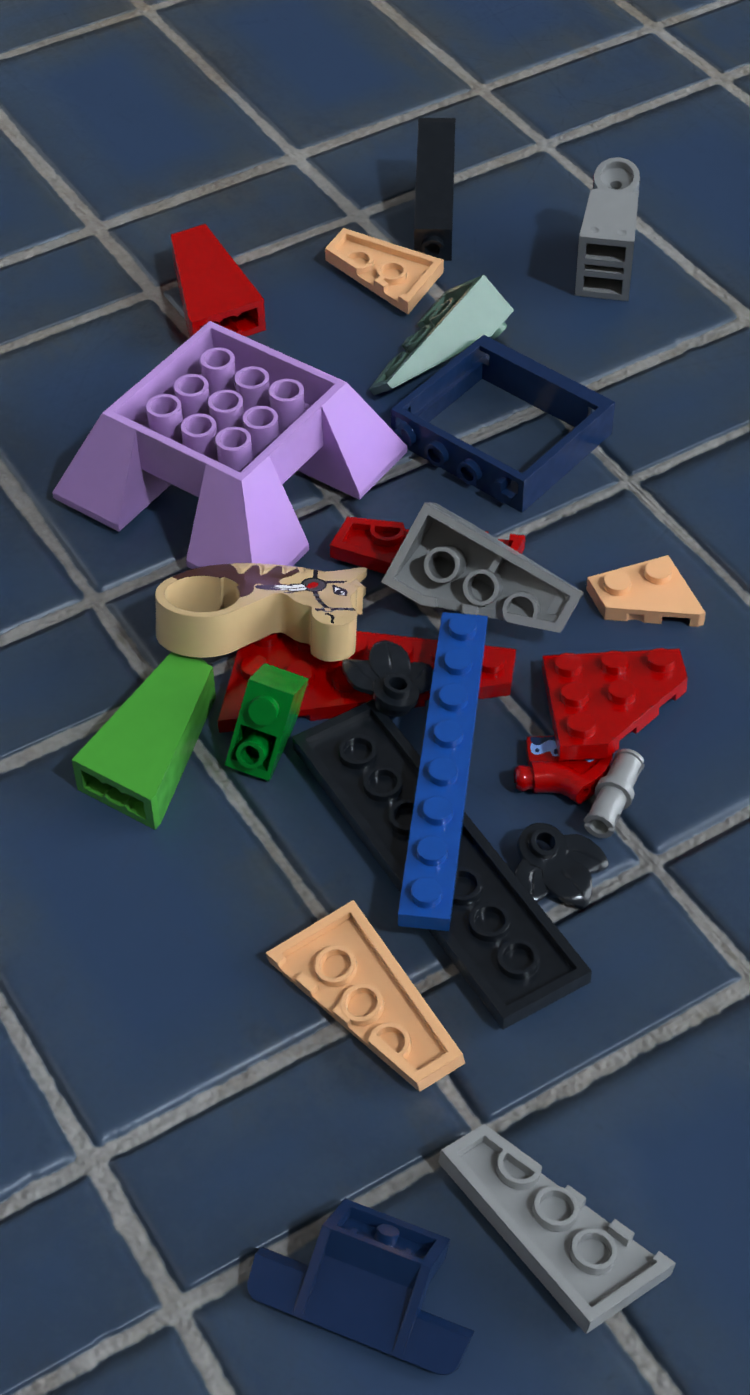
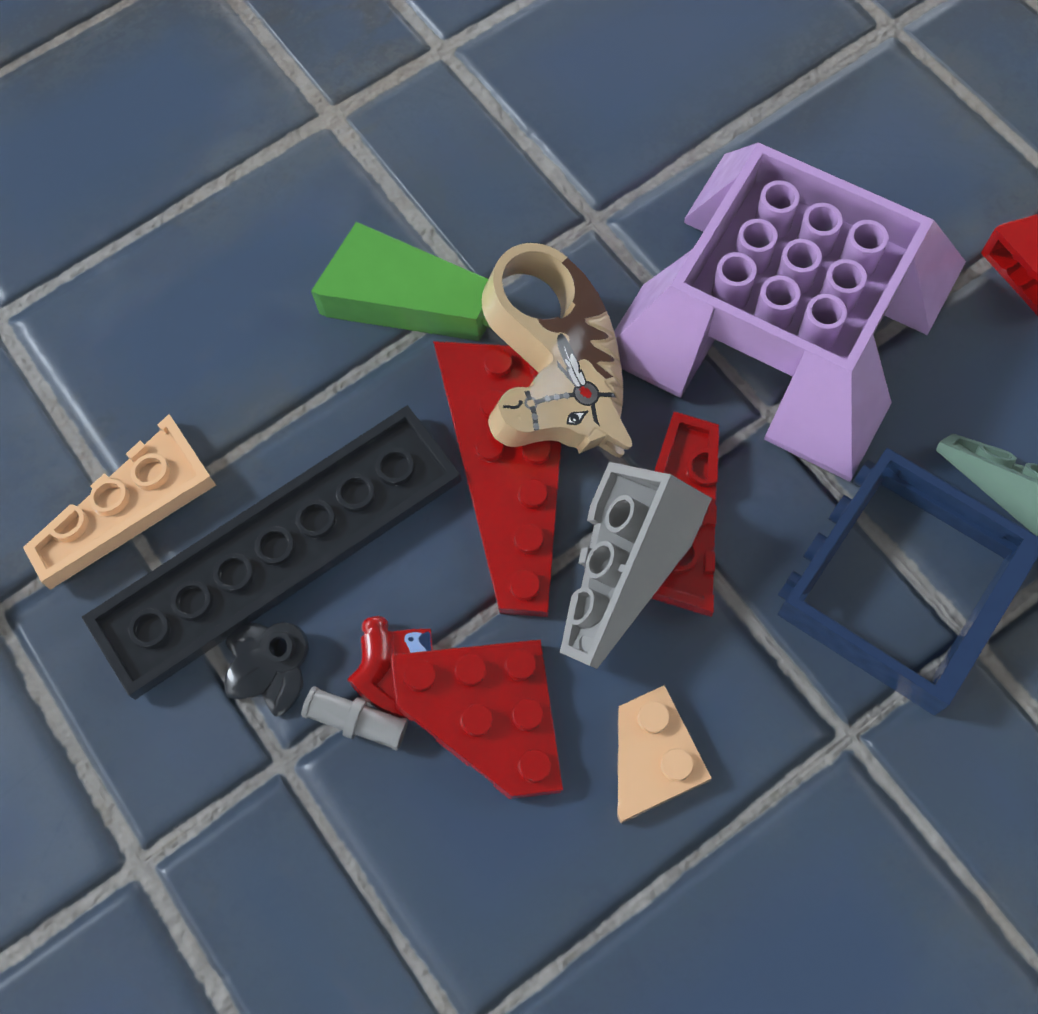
camera: 90 degrees right, 20 degrees up
(265, 720) = (420, 376): green slope -> none
(389, 678) = (487, 482): black plate -> none
(443, 774) = (371, 544): blue plate -> none

